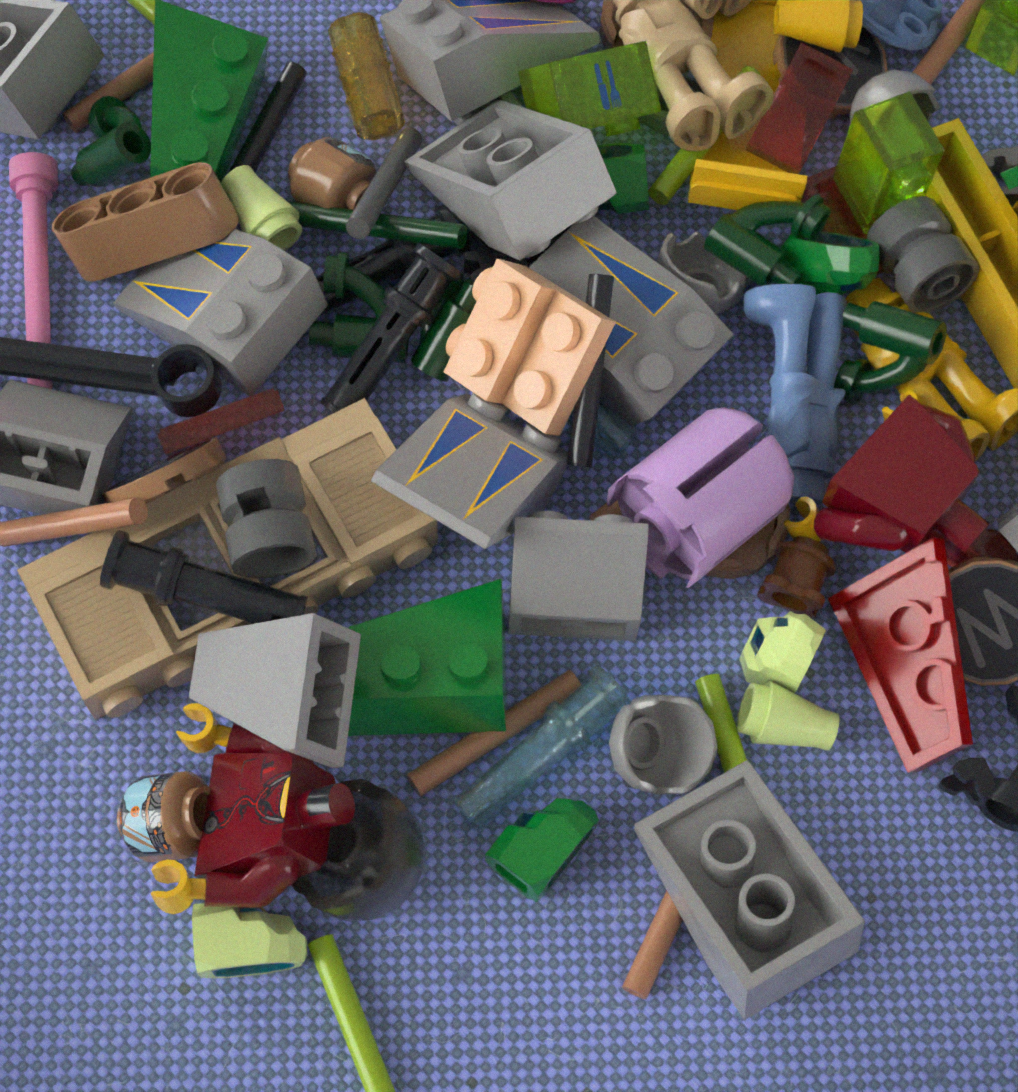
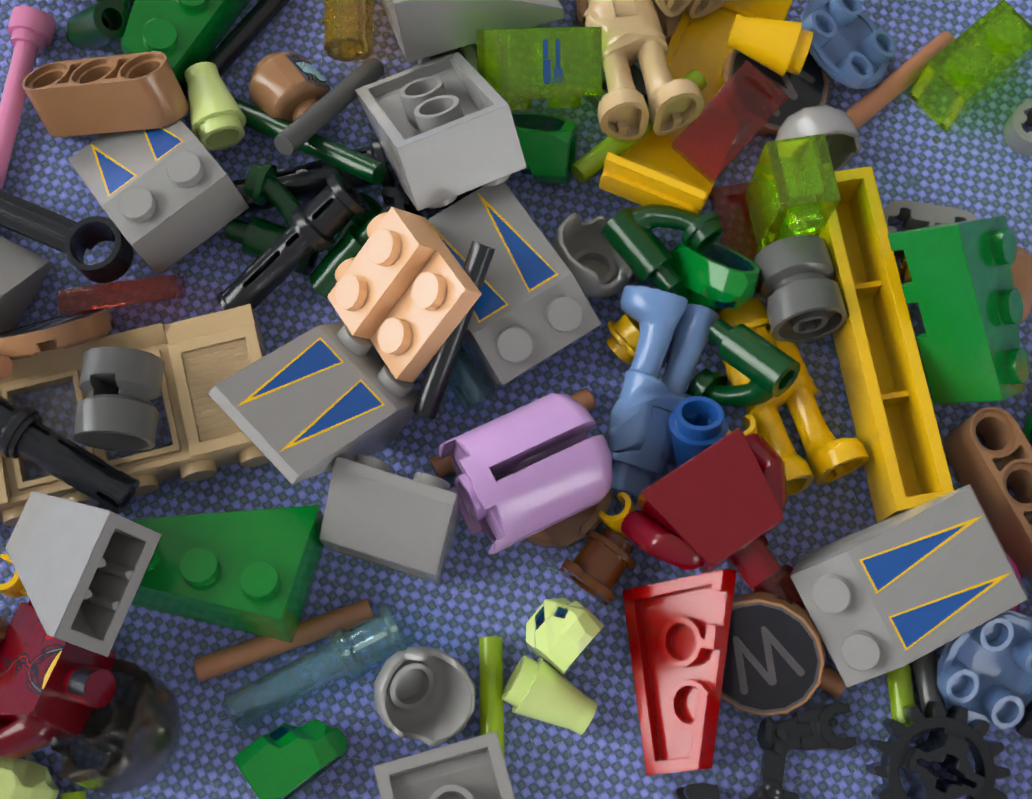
camera: 15 degrees right, 5 degrees up
(757, 347) = (624, 338): none -> yellow plate
(857, 414) = (695, 427): none -> blue cone

